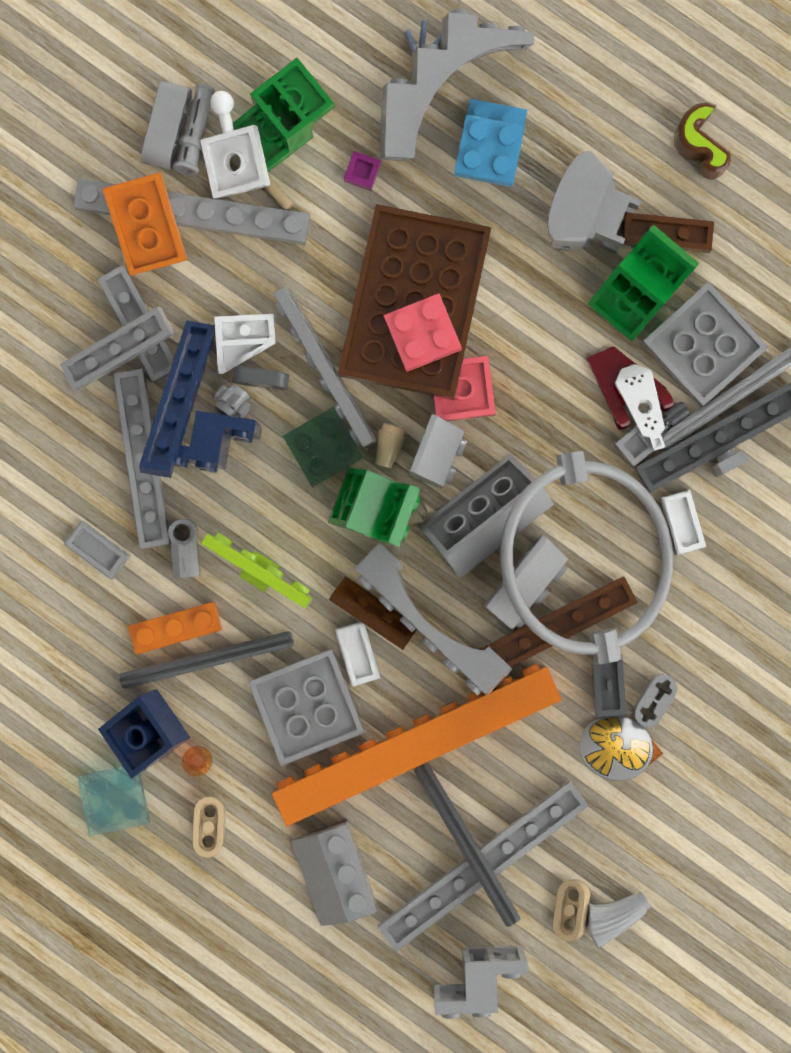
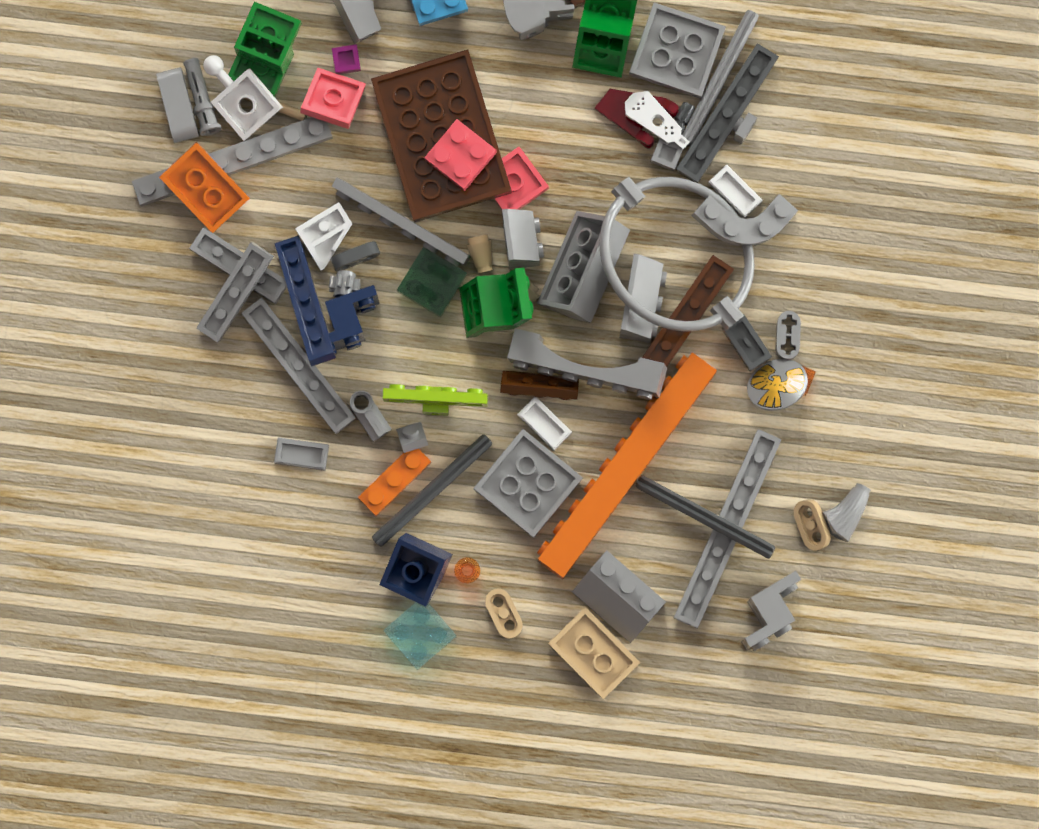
camera: 30 degrees left, 5 degrees down
(215, 595) = (412, 437): none -> light grey plate
(277, 917) = (594, 653): none -> tan plate
(326, 203) = (333, 98): none -> coral plate
(667, 568) = (744, 231): none -> light grey plate

